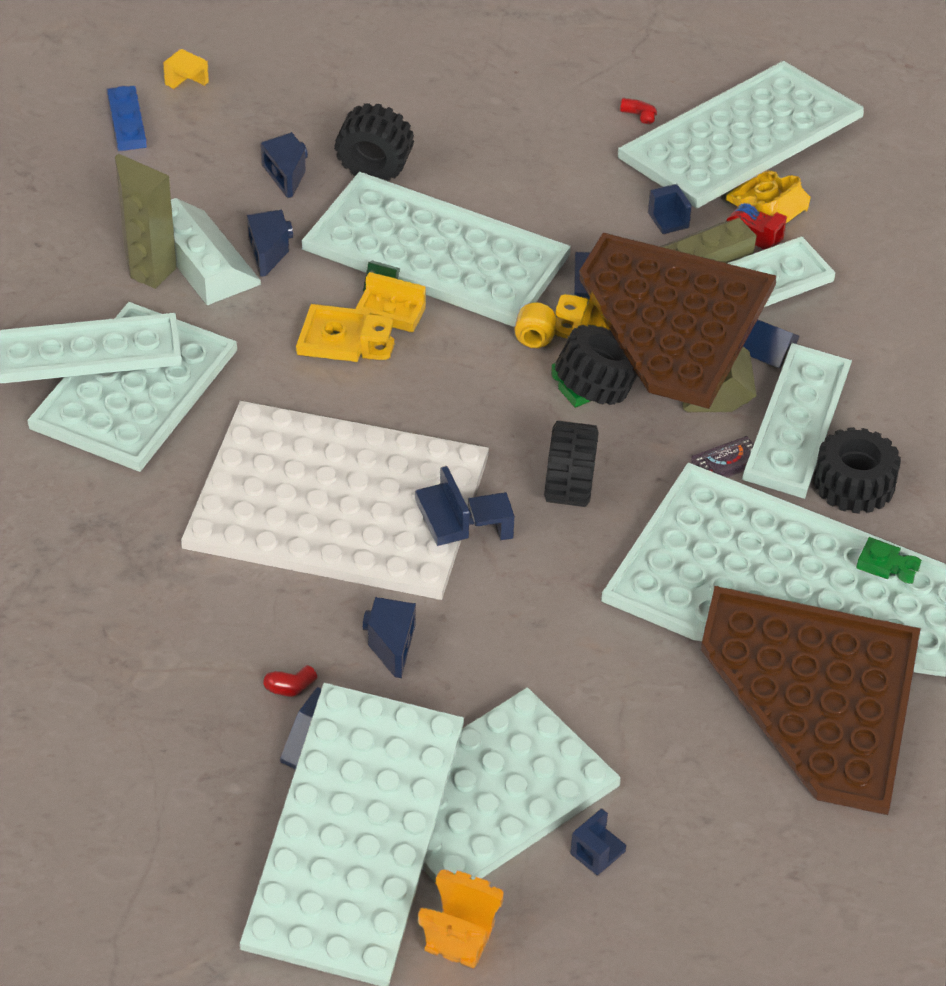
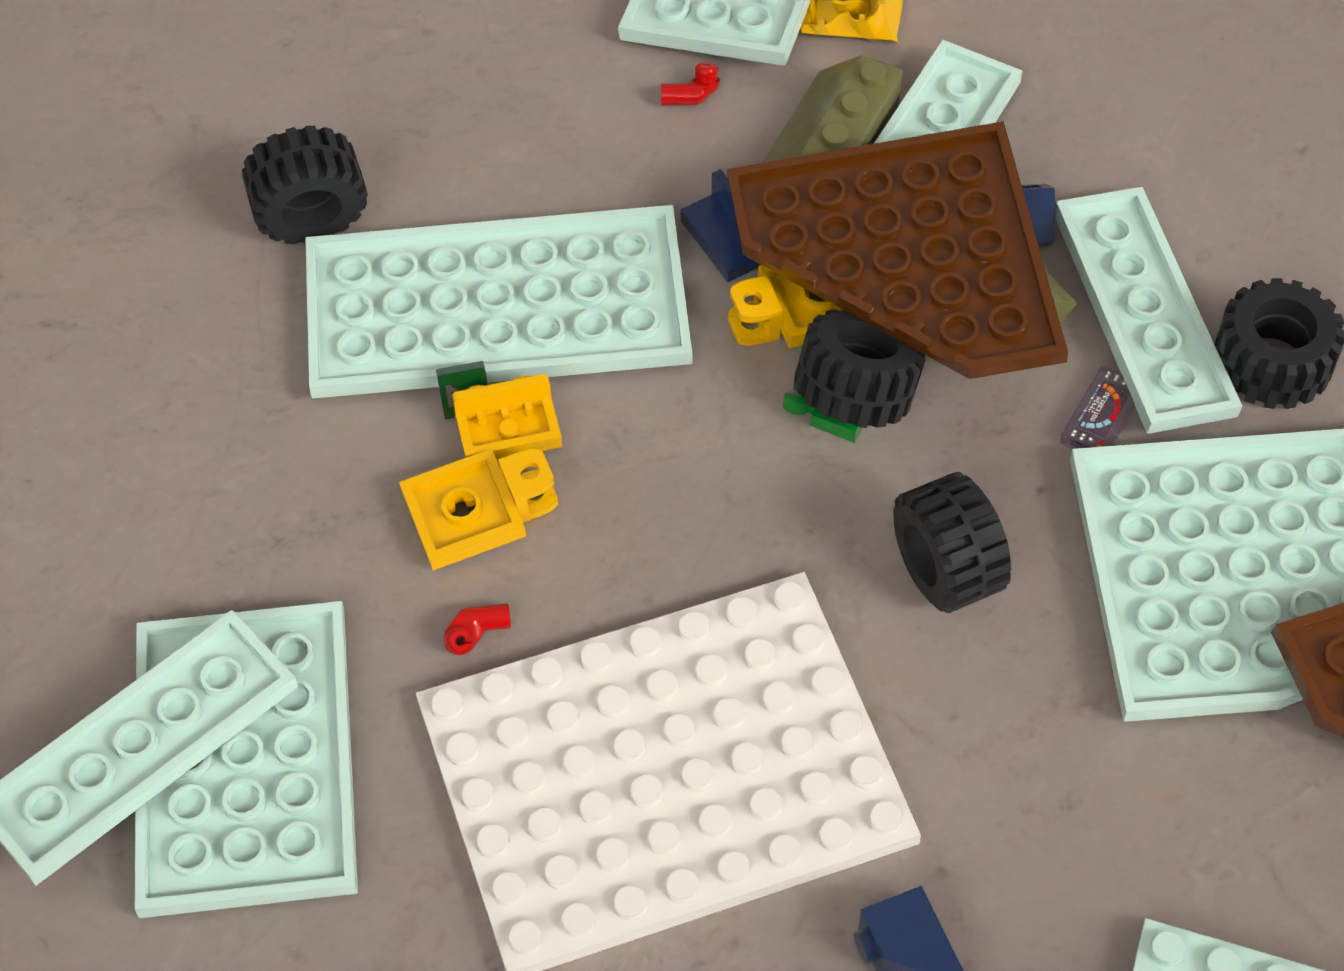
camera: 30 degrees left, 10 degrees up
(146, 221) = (85, 488): olive slope -> none
(207, 255) = (175, 481): light aqua slope -> none
(268, 238) = (257, 409): dark blue slope -> none
(285, 161) = (186, 274): dark blue slope -> none
(295, 386) = (472, 623): none -> red arm
(444, 509) = (841, 709): dark blue panel -> none
(493, 510) = (897, 674): dark blue panel -> none
(535, 325) = (722, 350): yellow head -> none
(633, 200) = (694, 91): none -> red arm
(669, 209) = (750, 83): dark blue panel -> none
(768, 229) = (888, 46): red leg -> none

